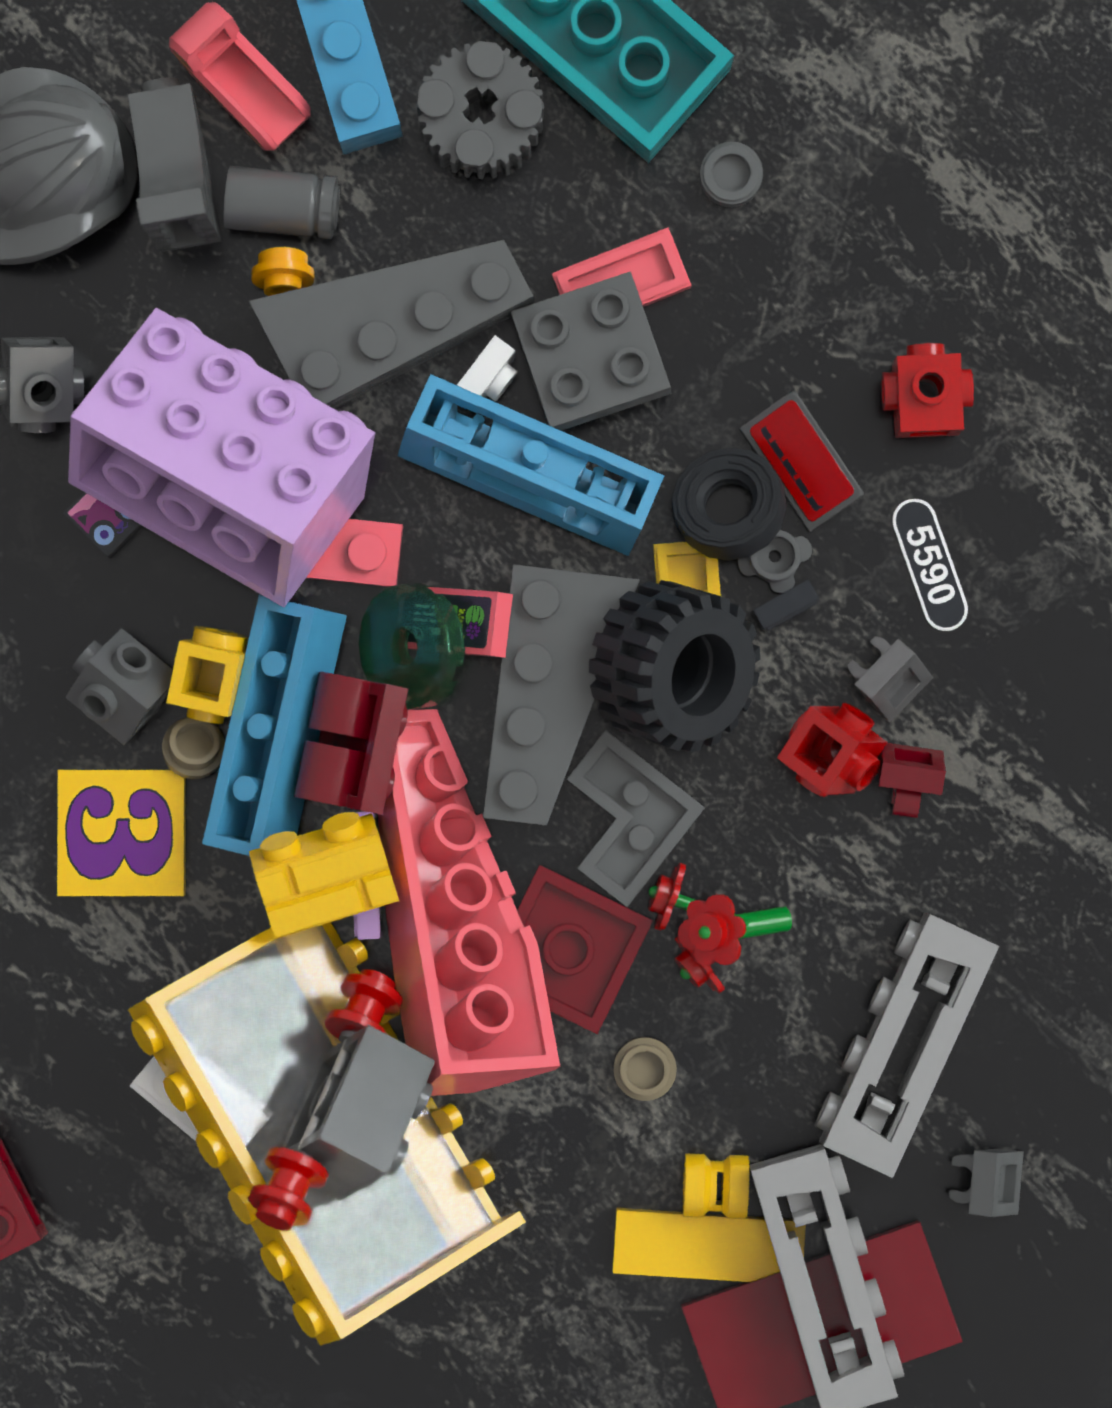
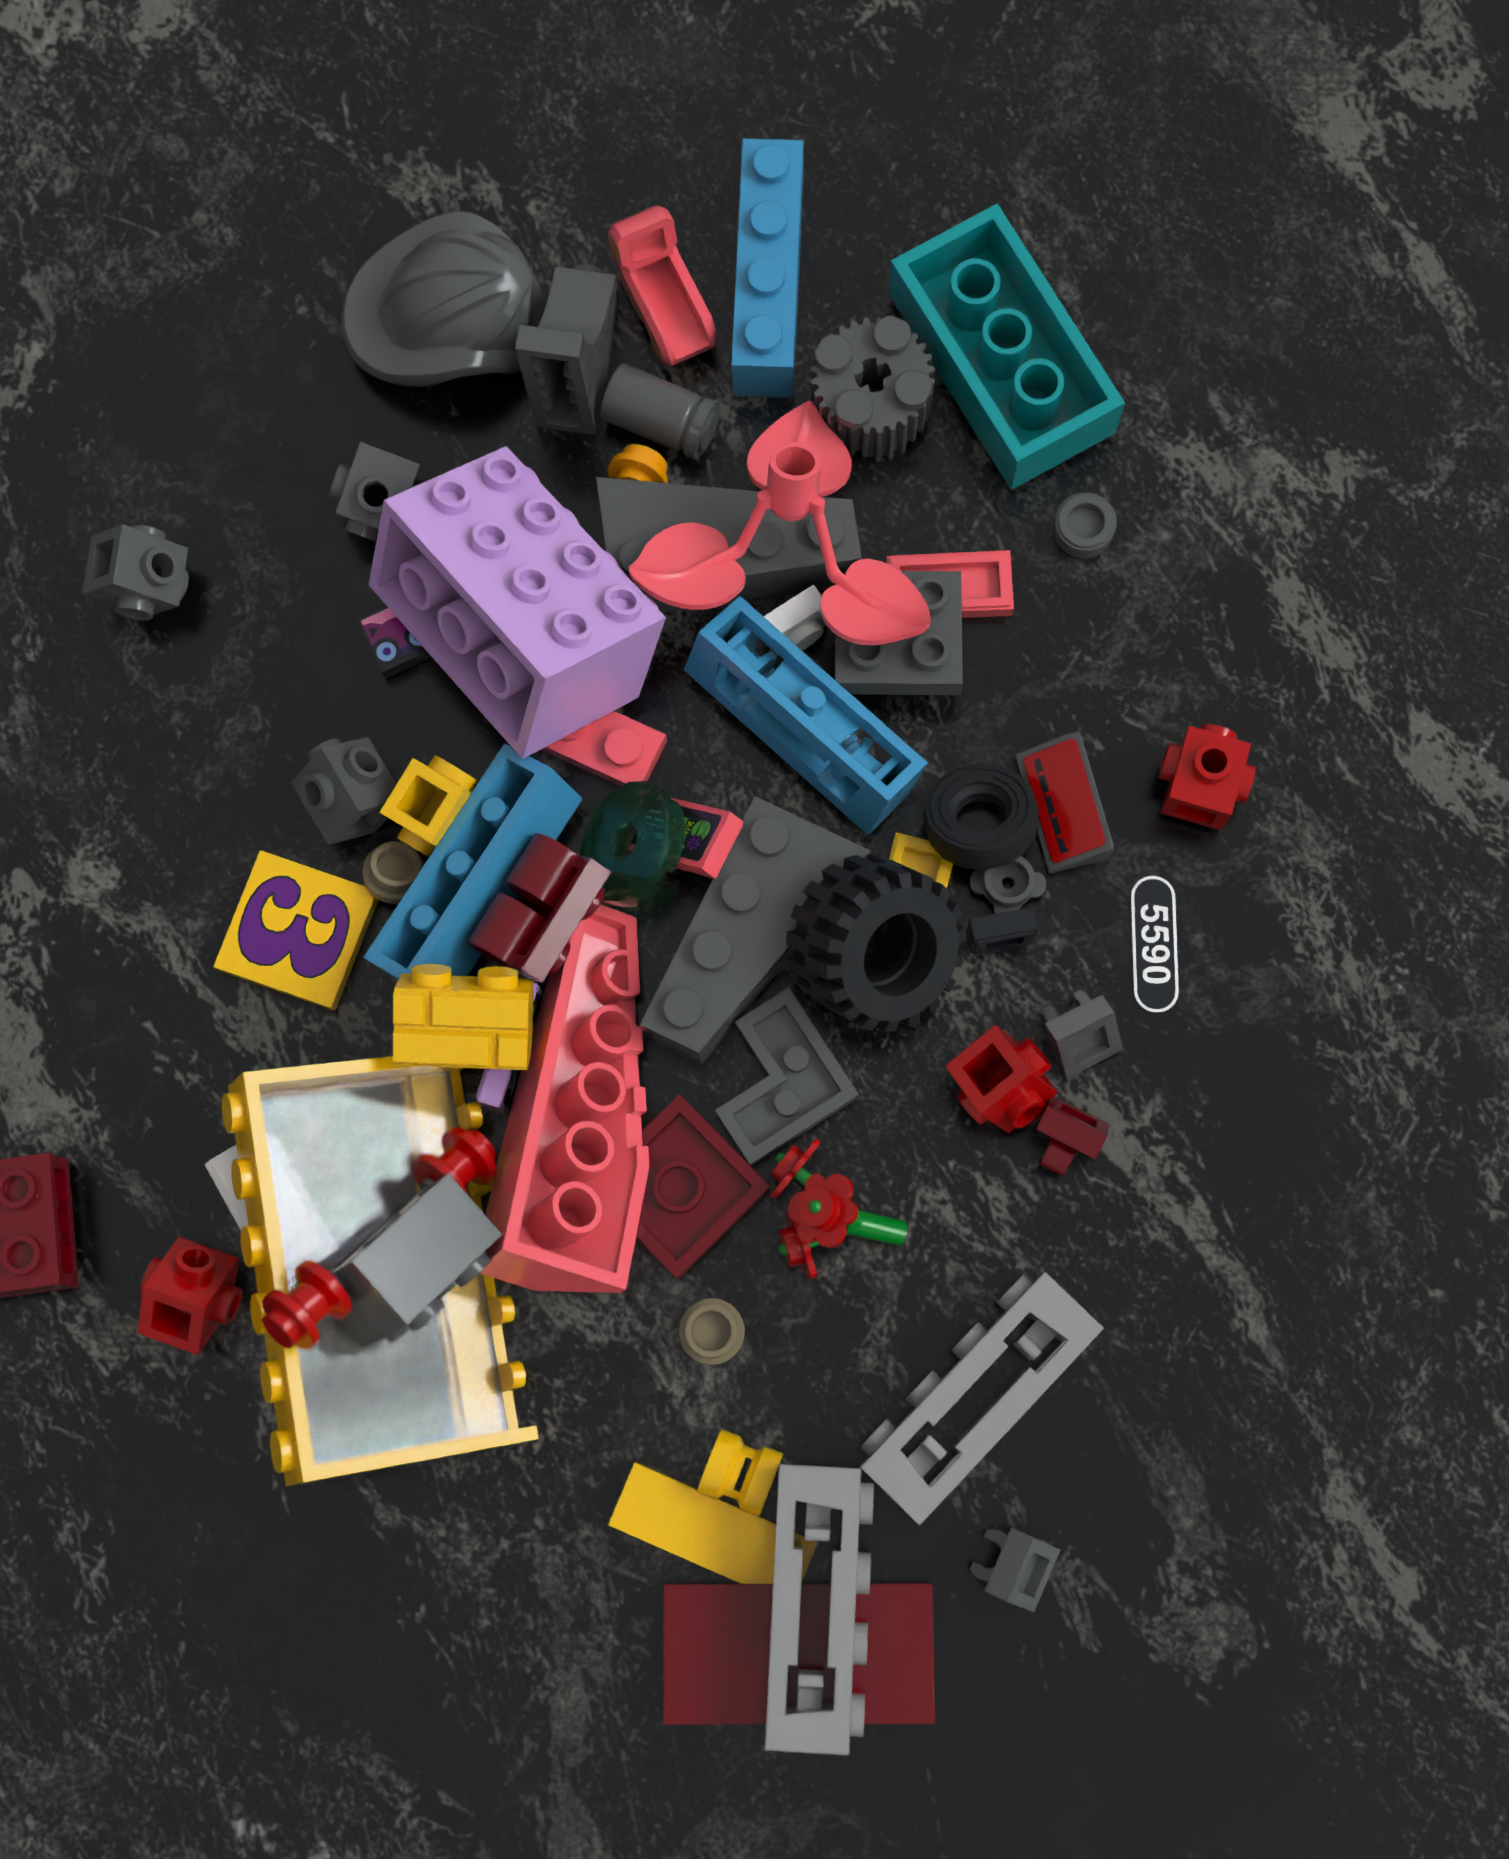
camera: 25 degrees right, 10 degrees down
(158, 1206) = (190, 1282): none -> red brick
(440, 220) = (795, 467): none -> coral plant

